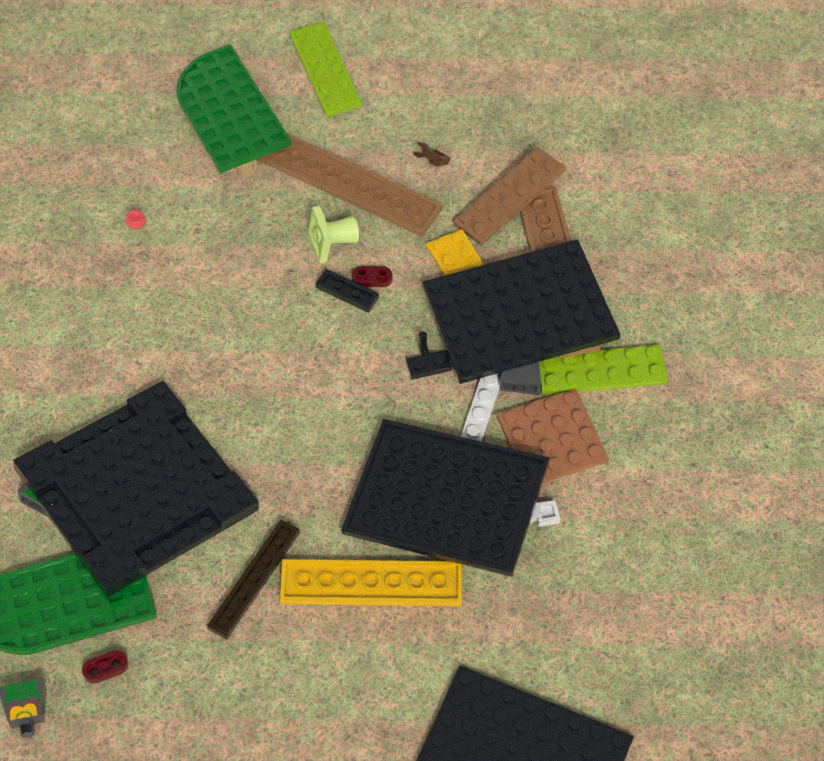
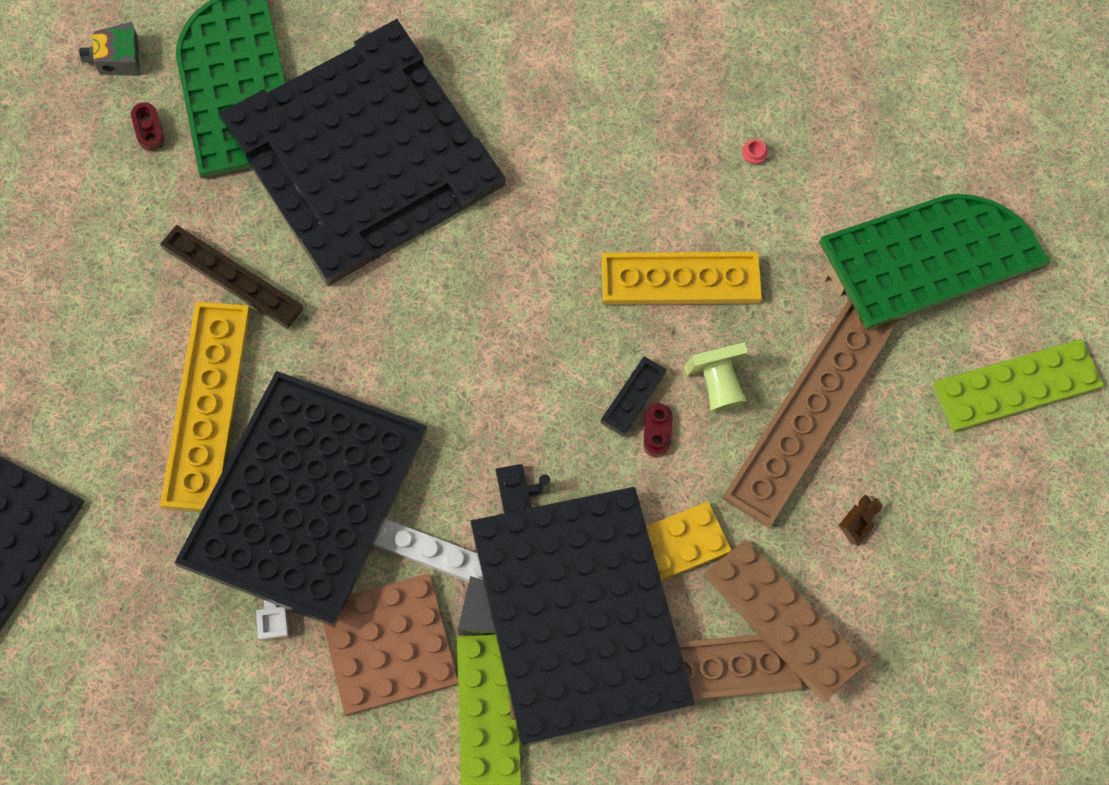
camera: 90 degrees right, 10 degrees up
(247, 265) = (680, 278): none -> yellow plate

